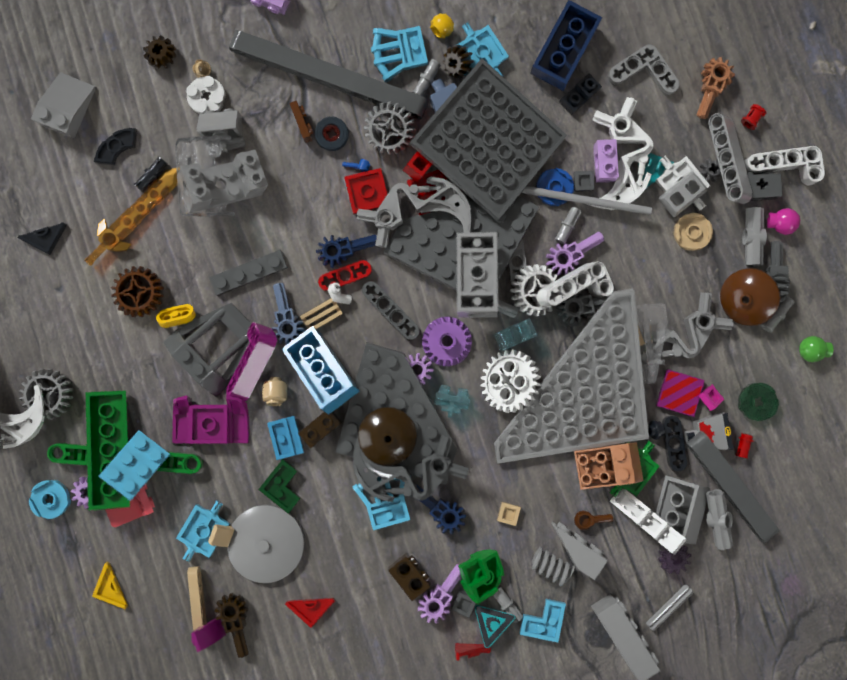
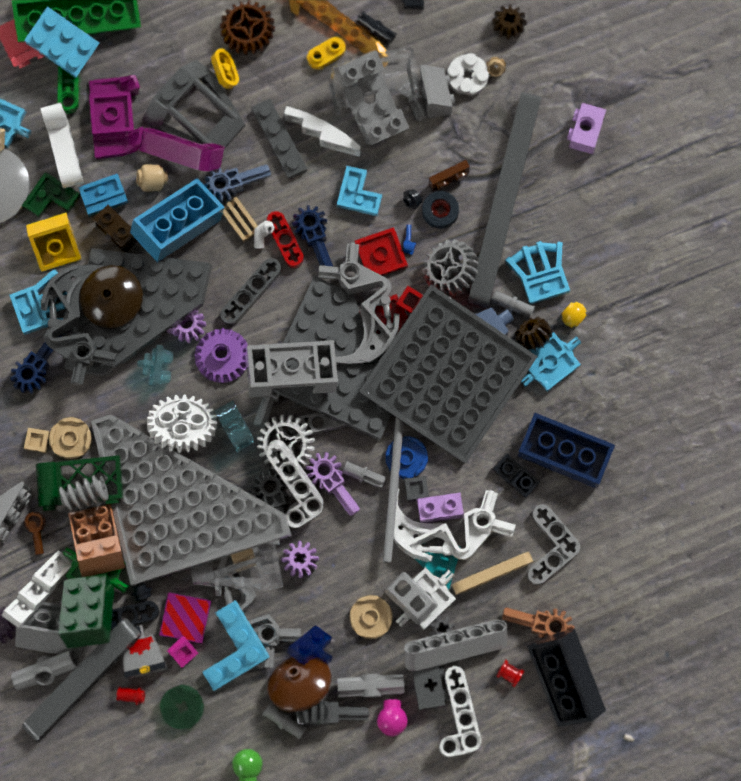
camera: 85 degrees right, 10 degrees down
(170, 221) = (327, 53): none -> yellow plate
(236, 471) = (62, 145): none -> white beam
(250, 226) = (329, 135): none -> white slope
(310, 210) = (354, 197): none -> medium azure plate
(319, 157) = (412, 198): none -> black plate
(325, 486) = (53, 242): none -> yellow slope
(509, 483) = (70, 438): none -> tan tile
(553, 503) = (50, 478): none -> dark green piece
(570, 473) = (83, 494): none -> light grey piece
(645, 292) = (298, 566): none -> lavender gear
(666, 122) = (492, 573): none -> tan beam
(679, 478) = (86, 611): none -> dark green brick
(719, 283) = (311, 646): none -> clear blue plate
(719, 338) = (249, 647): none -> medium azure plate
(766, 67) = (566, 678): none -> black slope

